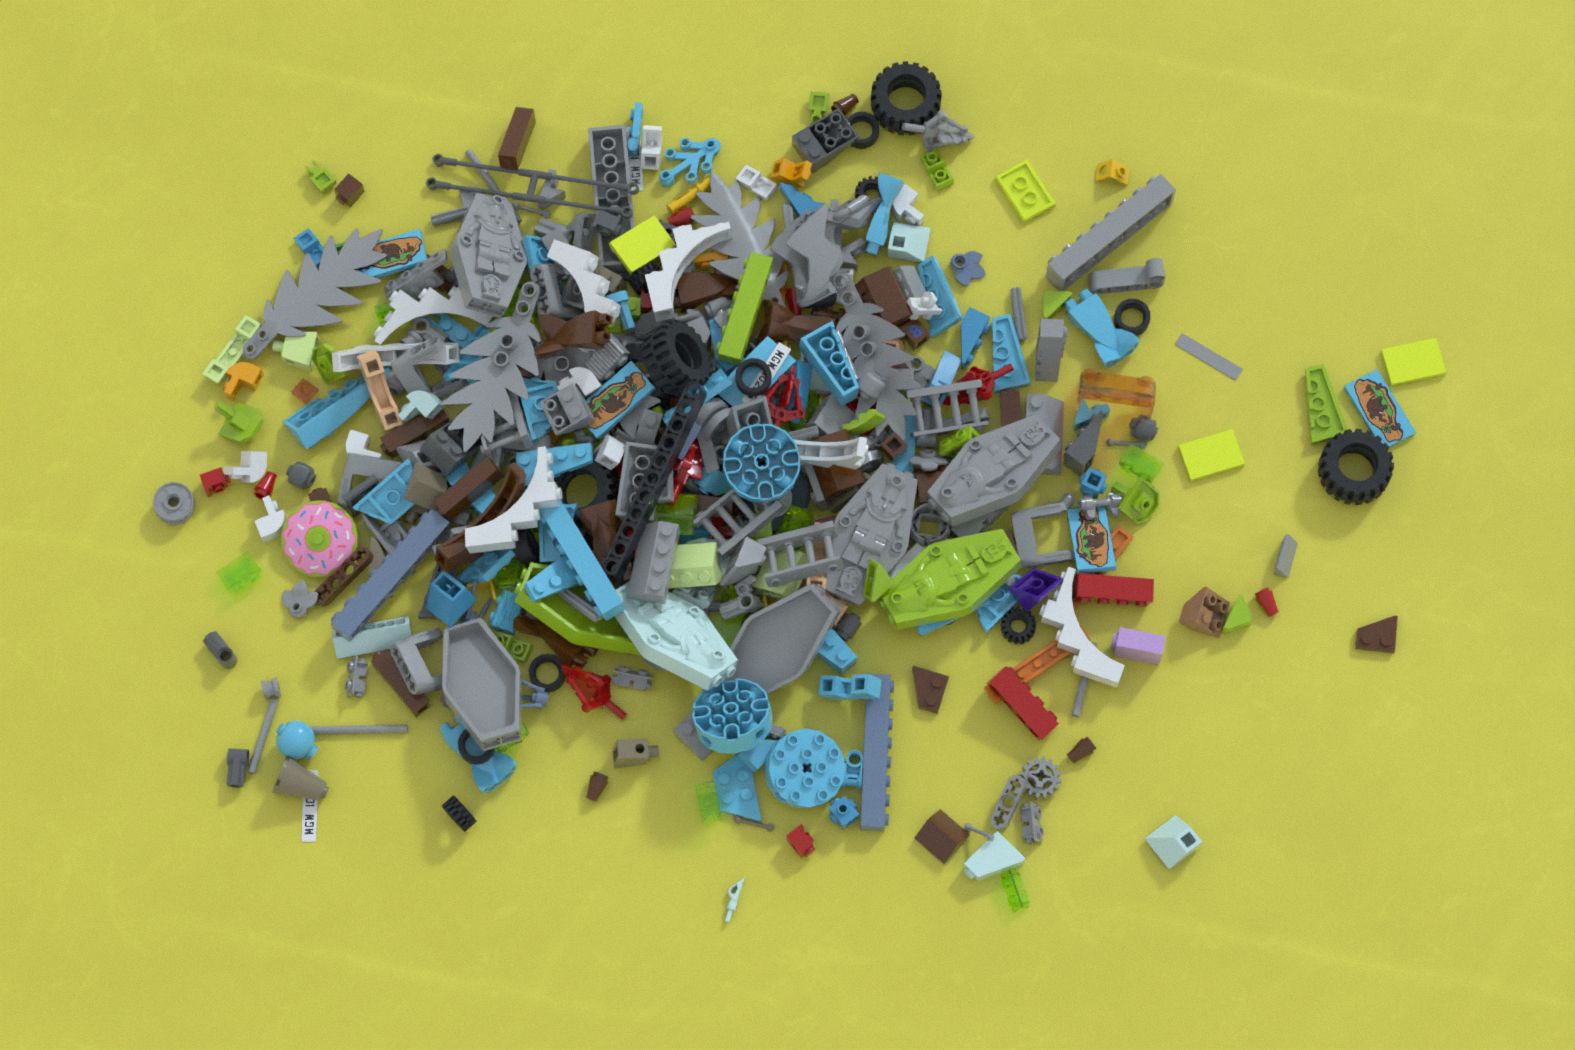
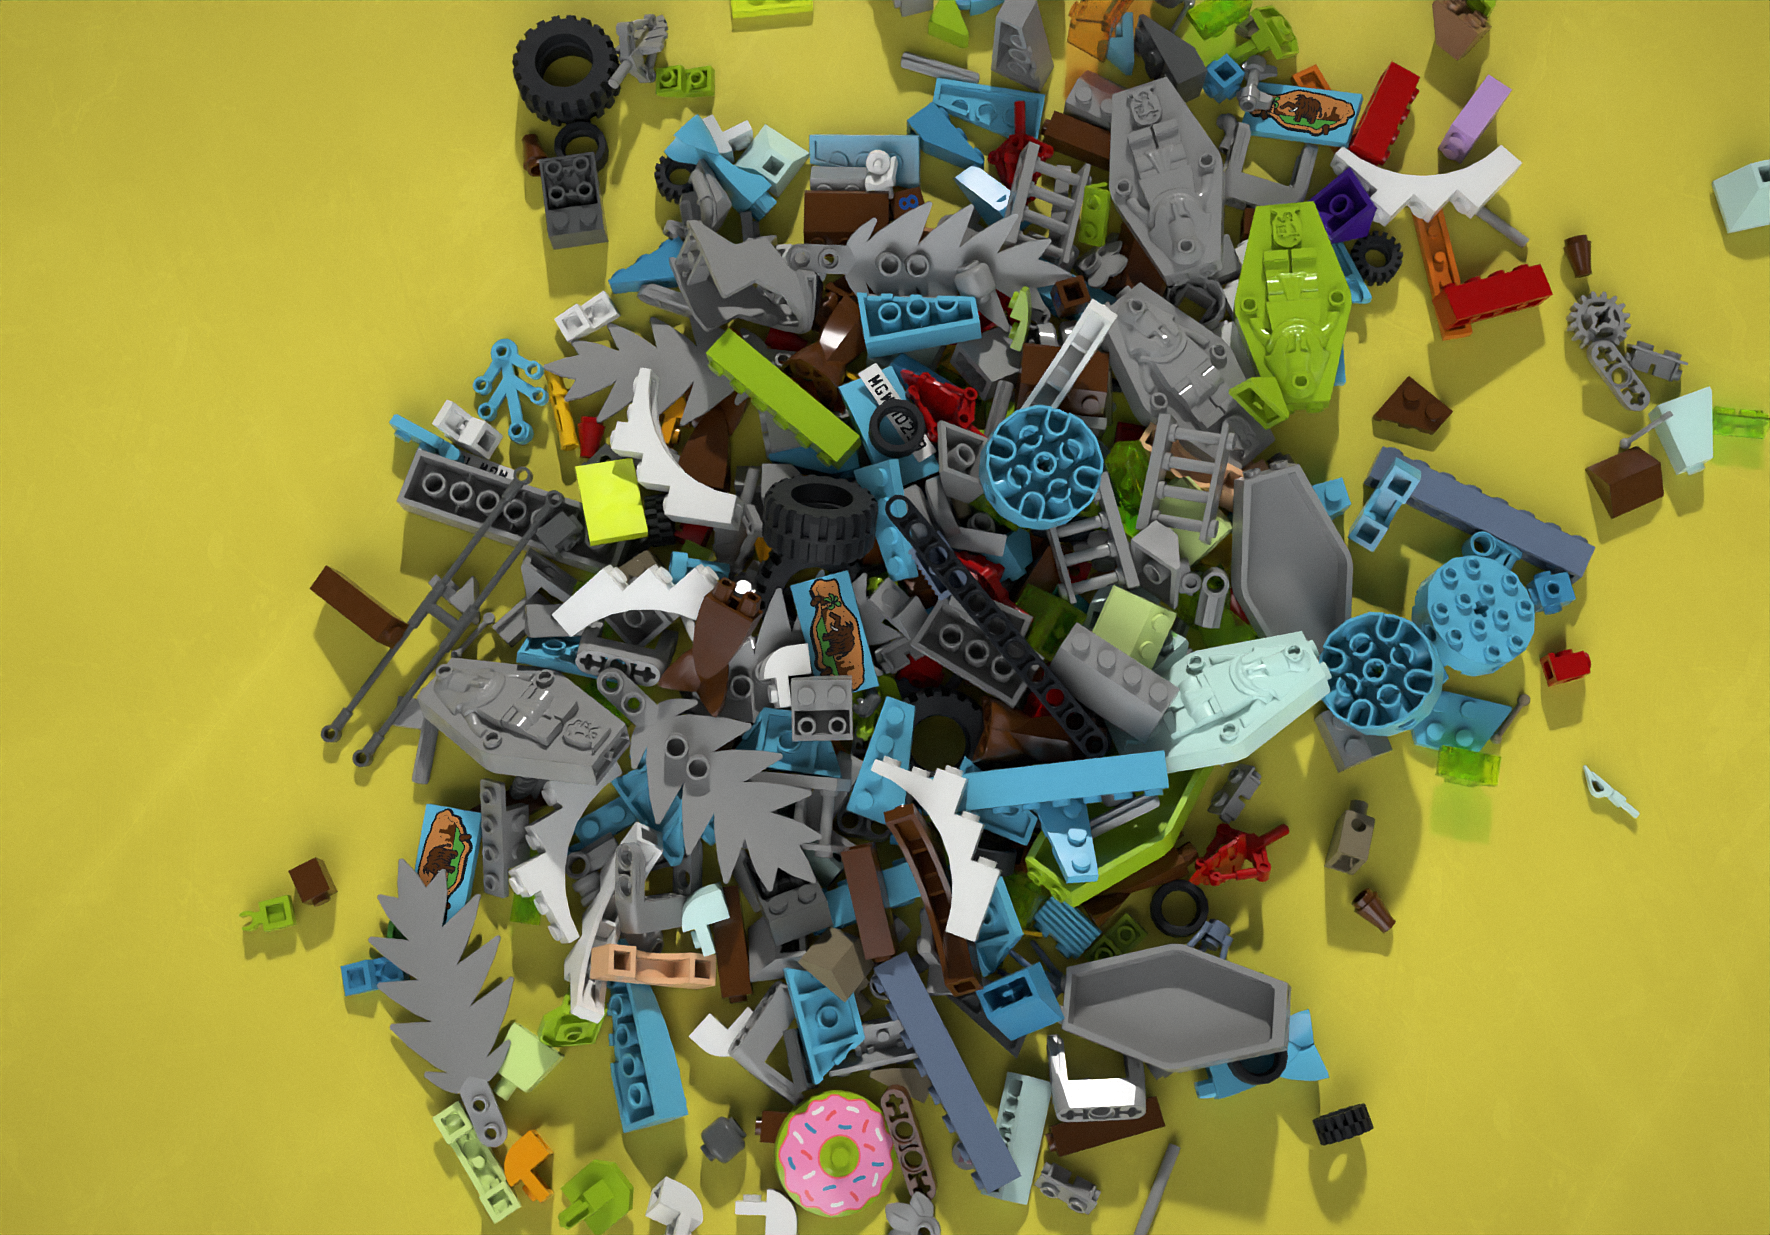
camera: 65 degrees left, 5 degrees up
(265, 486) = (714, 1200): red cone -> none
(304, 391) = (591, 1079): clear orange tile -> none
(488, 179) = (390, 677): light grey piece -> none
(606, 360) = (775, 626): light grey brick -> none
(609, 452) = (910, 675): white brick -> none
(716, 305) = (747, 444): light grey brick -> none
(791, 173) = (599, 264): light orange brick -> none
(818, 104) = (515, 187): lime plate -> none
(970, 269) = (846, 103): sand blue plate -> none

